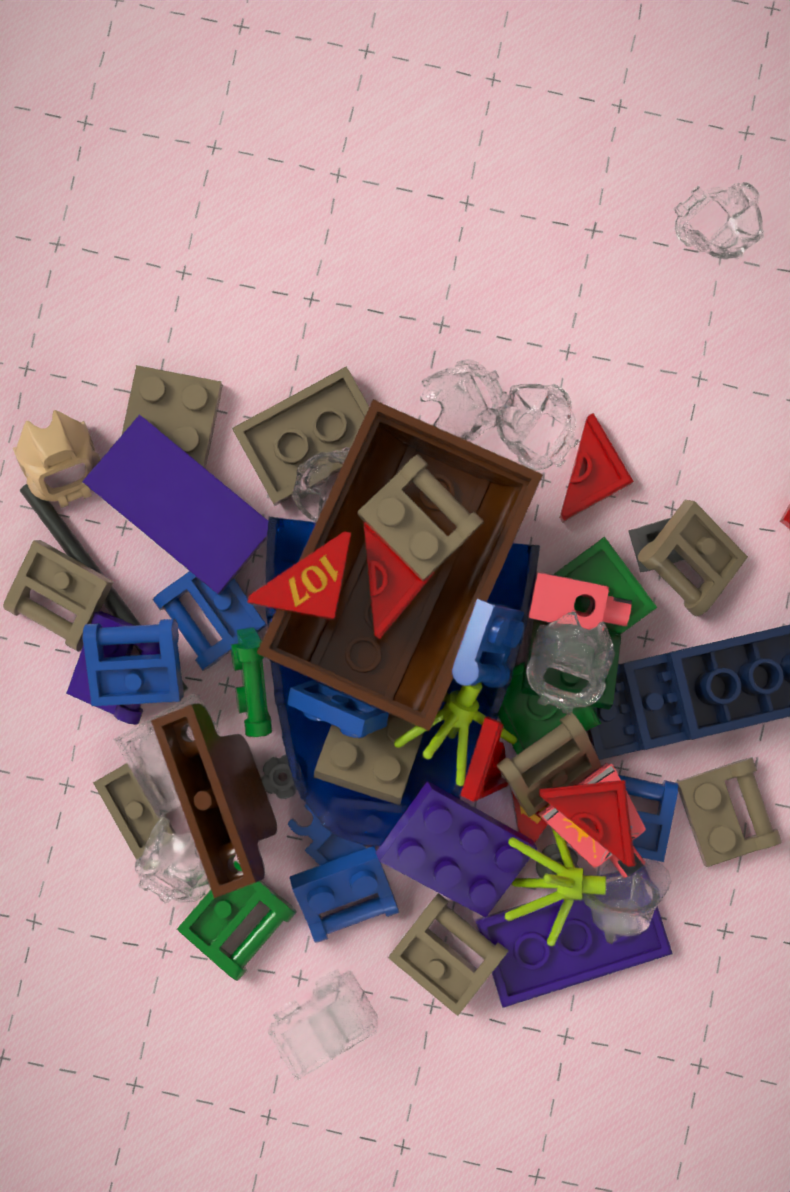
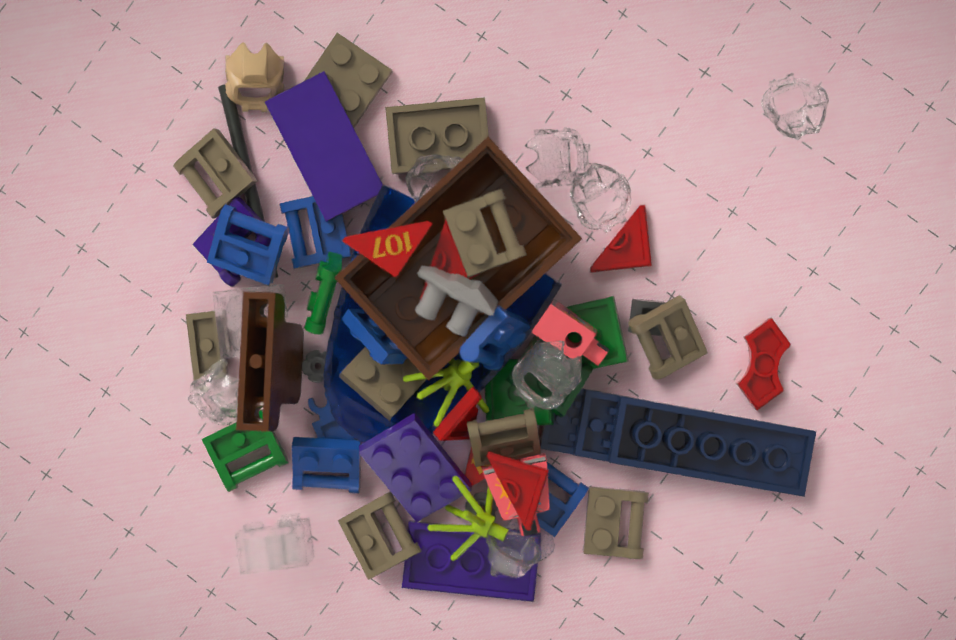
camera: 25 degrees right, 5 degrees up
(437, 598) = (470, 293): none -> light grey connector

